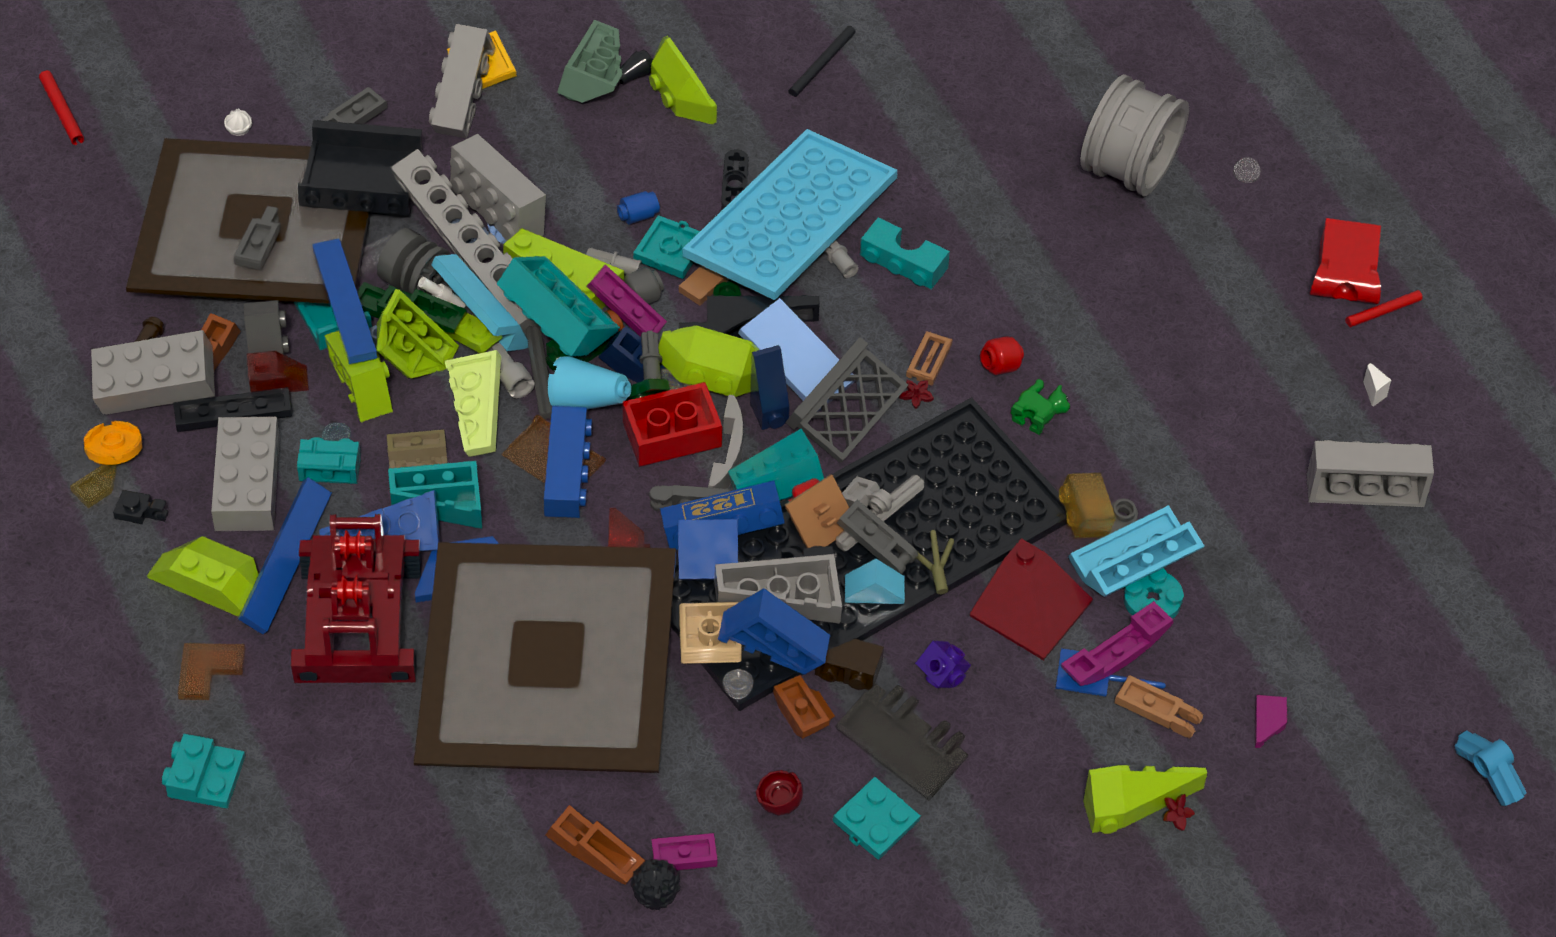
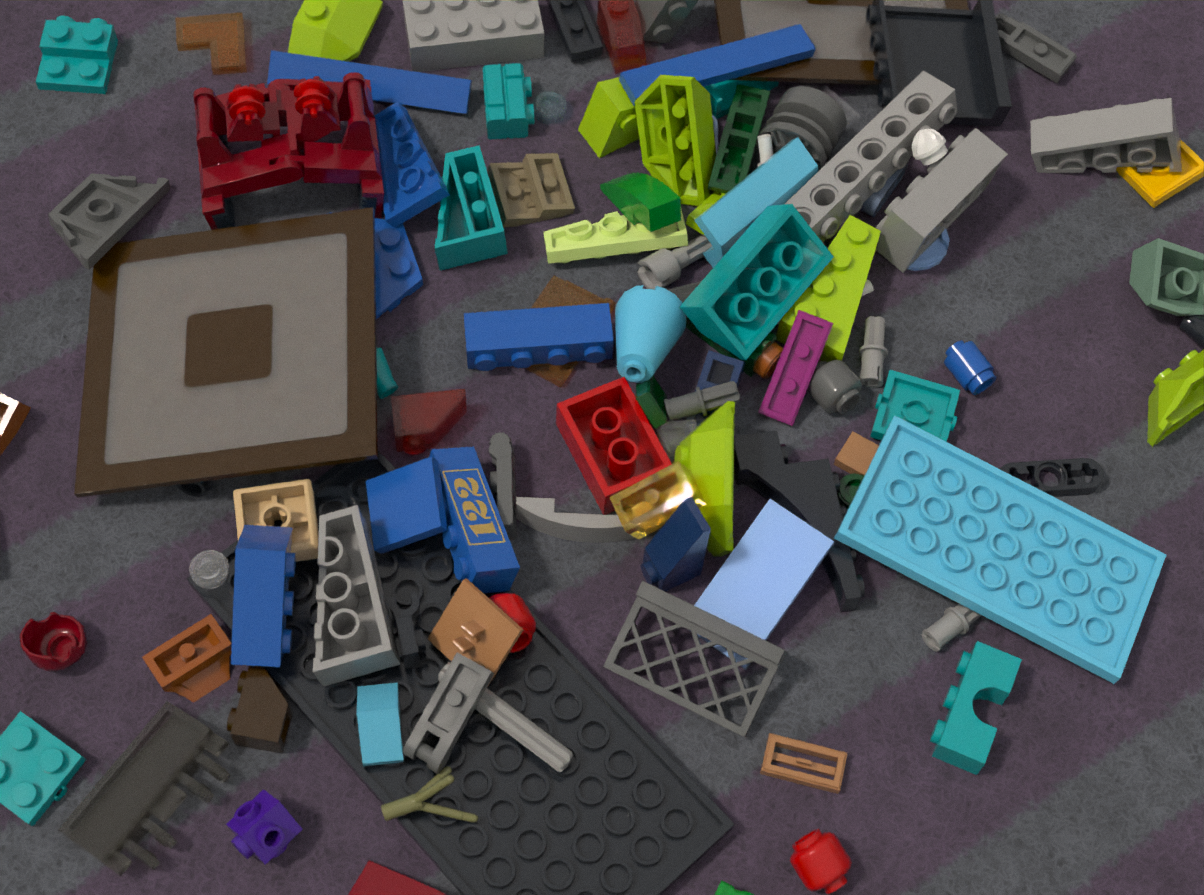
camera: 80 degrees right, 10 degrees up
(386, 750) = (103, 212): none -> dark grey wing
(454, 375) = (644, 200): none -> green slope
(464, 177) = (928, 146): none -> white plate
(739, 385) = (654, 499): none -> clear yellow brick
(785, 462) = (559, 583): teal wedge -> none
(868, 494) = (521, 685): light grey plate -> none
(917, 393) = (739, 752): dark red plant -> none

